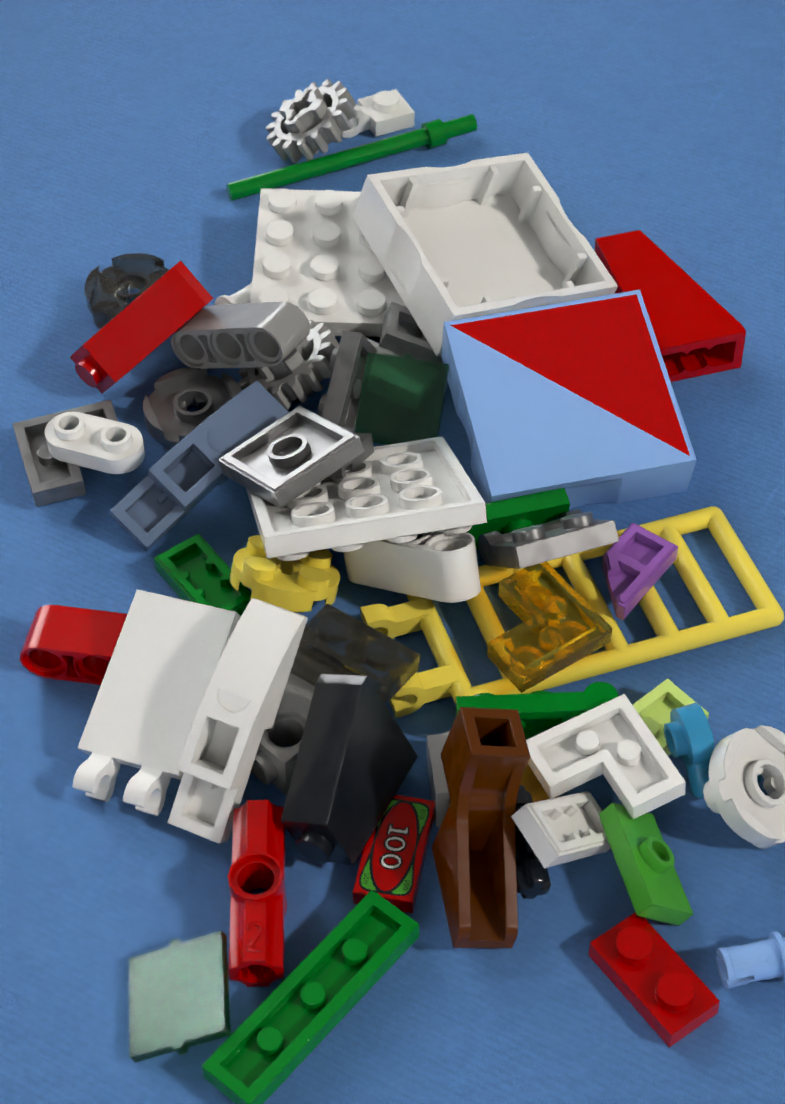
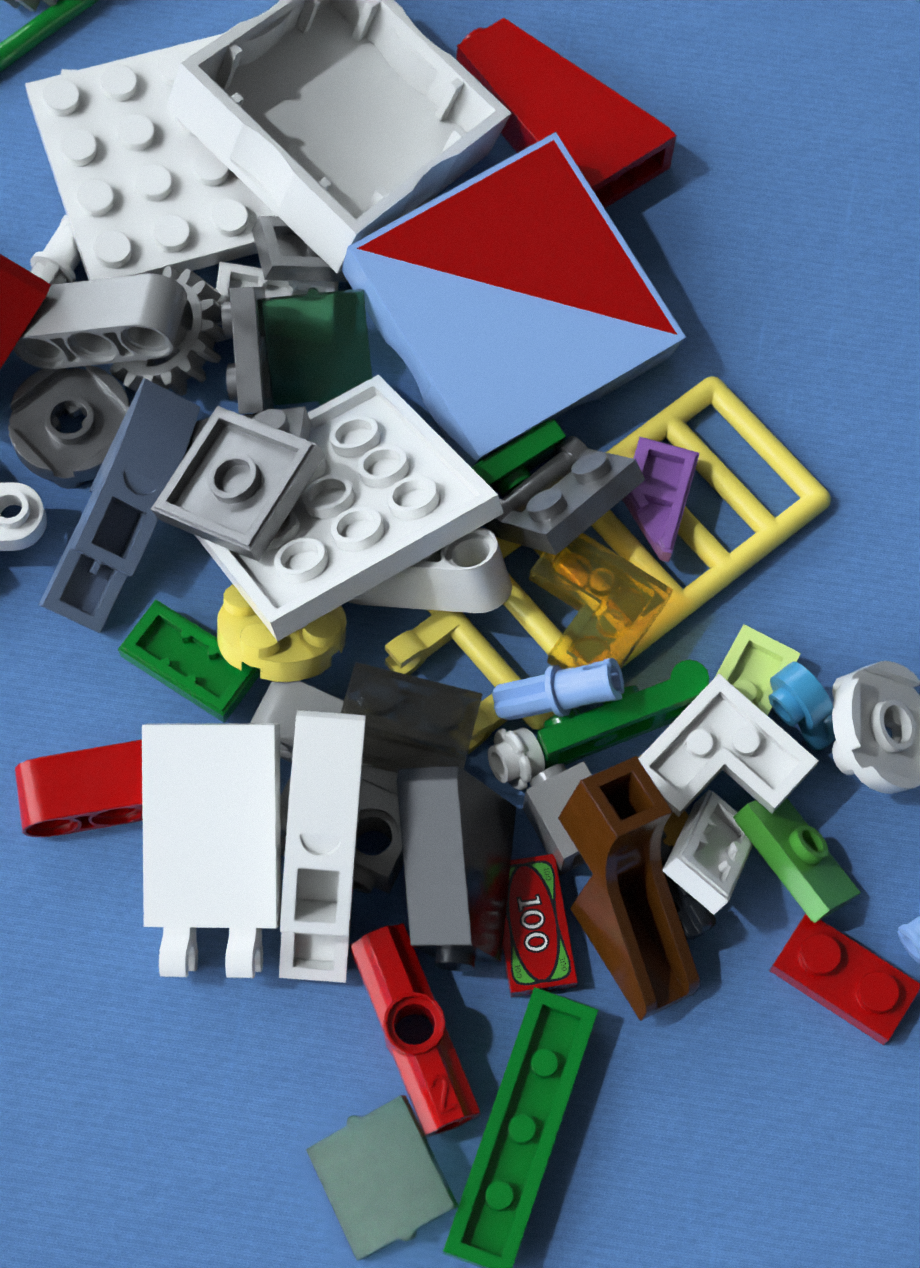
camera: 25 degrees left, 20 degrees up
(432, 717) = (516, 757): none -> white plate
(485, 669) = (559, 690): none -> light blue axle

